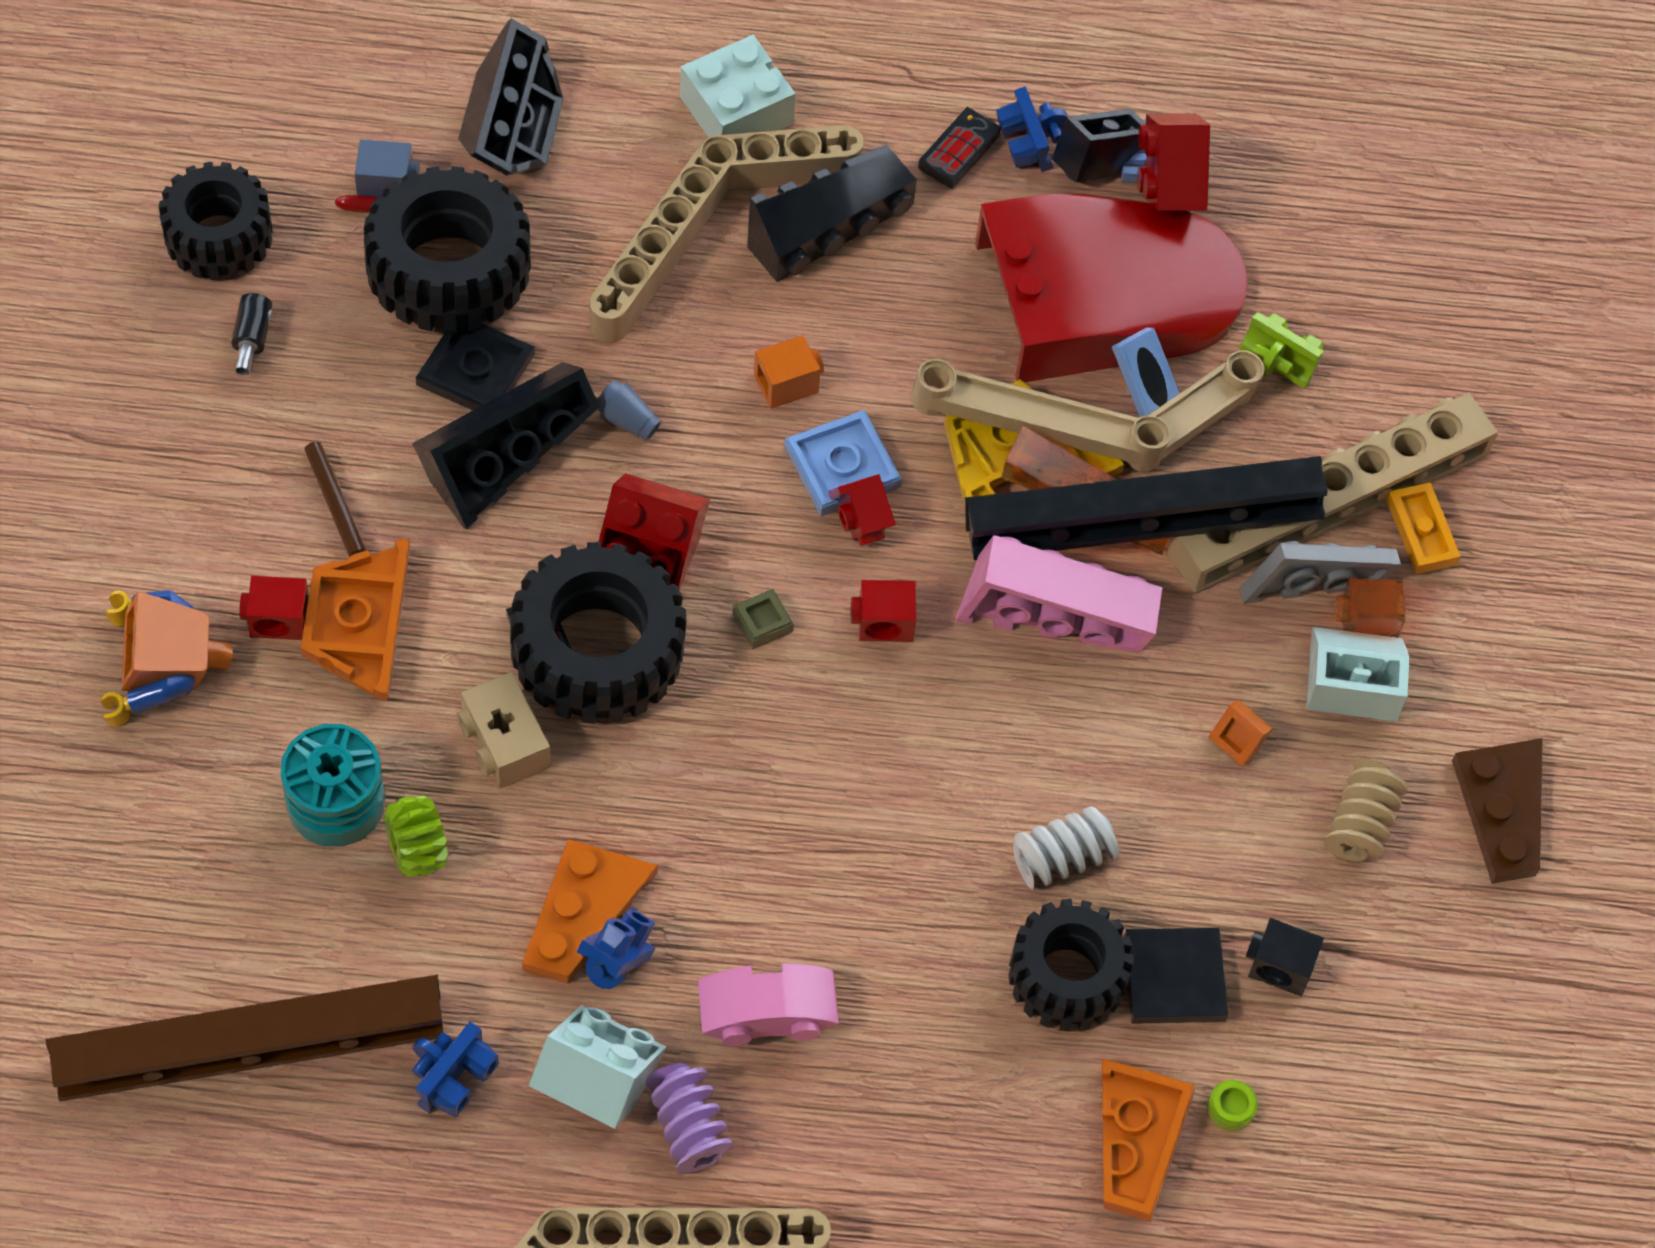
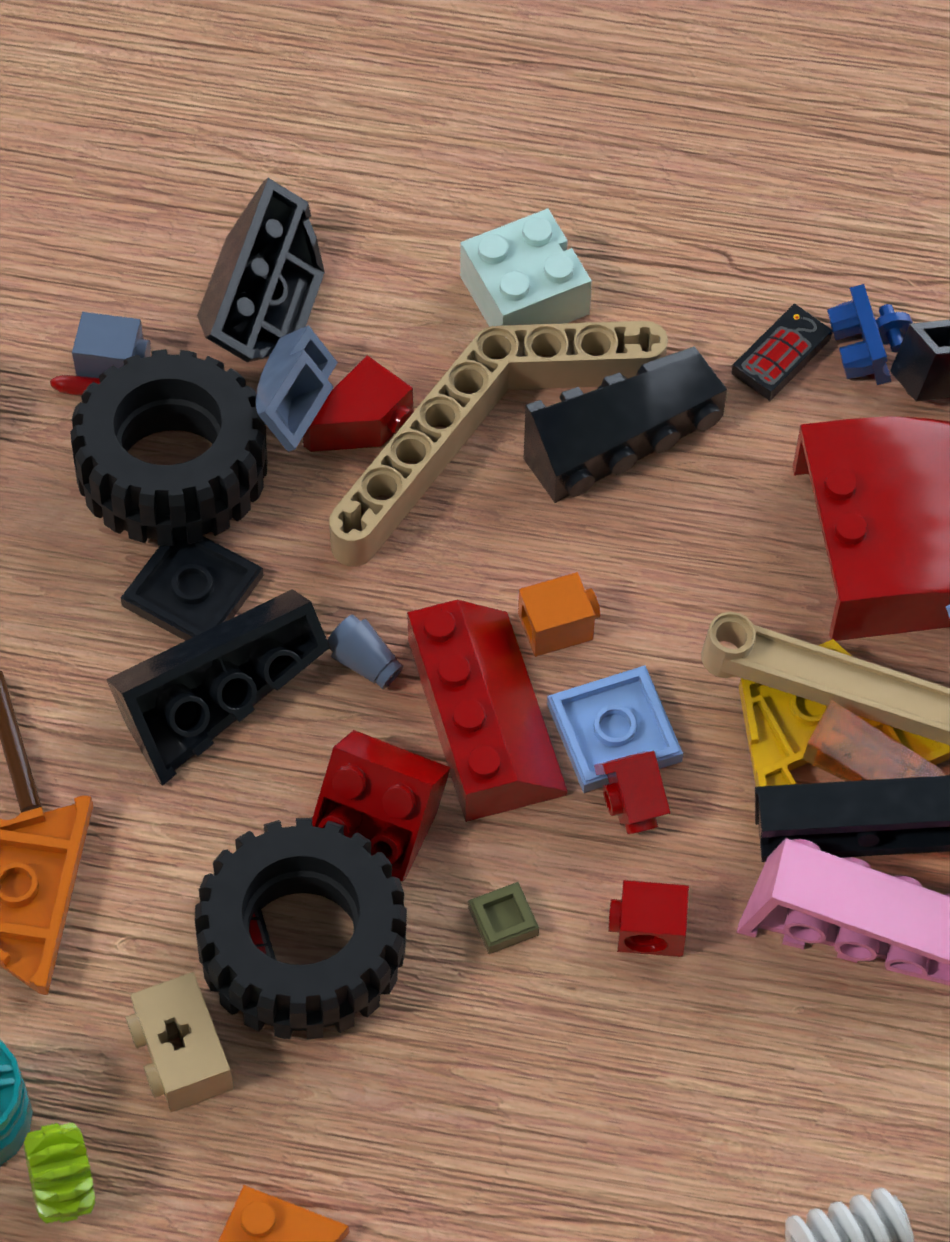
camera: 10 degrees right, 0 degrees up
(550, 191) = (294, 385): none -> sand blue slope
(605, 212) = (361, 410): none -> red slope
(731, 451) = (483, 708): none -> red slope

